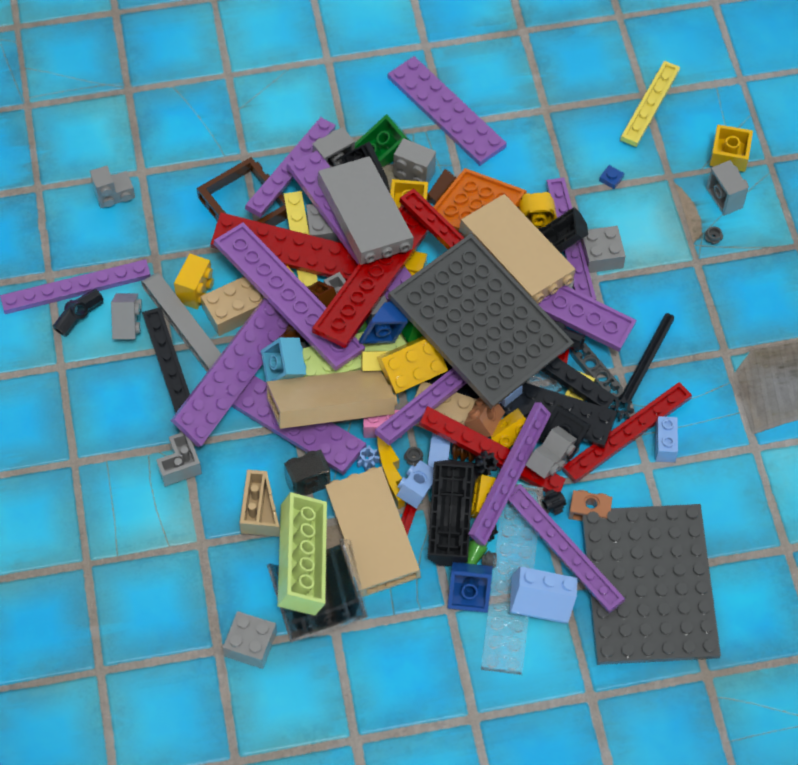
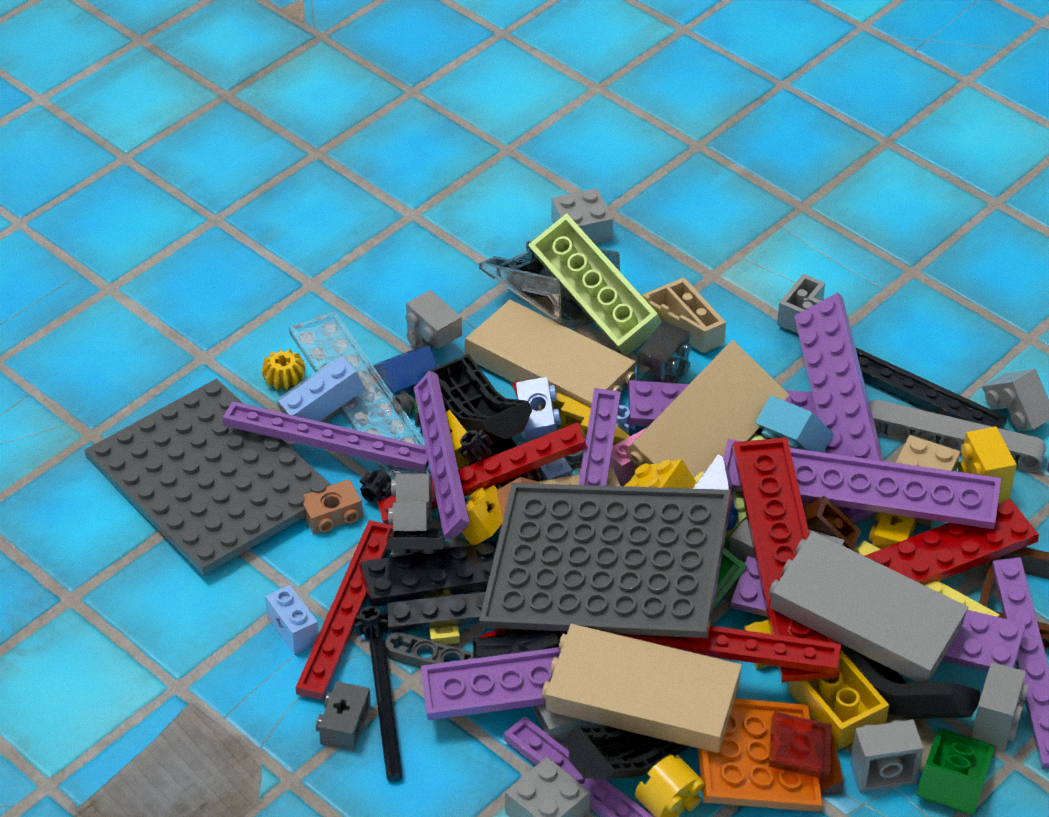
camera: 145 degrees right, 15 degrees down
(432, 602) = (431, 322): none -> light grey brick
(454, 190) = (800, 745): none -> clear red plate
(541, 638) = (283, 369): none -> yellow gear
(675, 363) = (344, 716): none -> dark grey brick

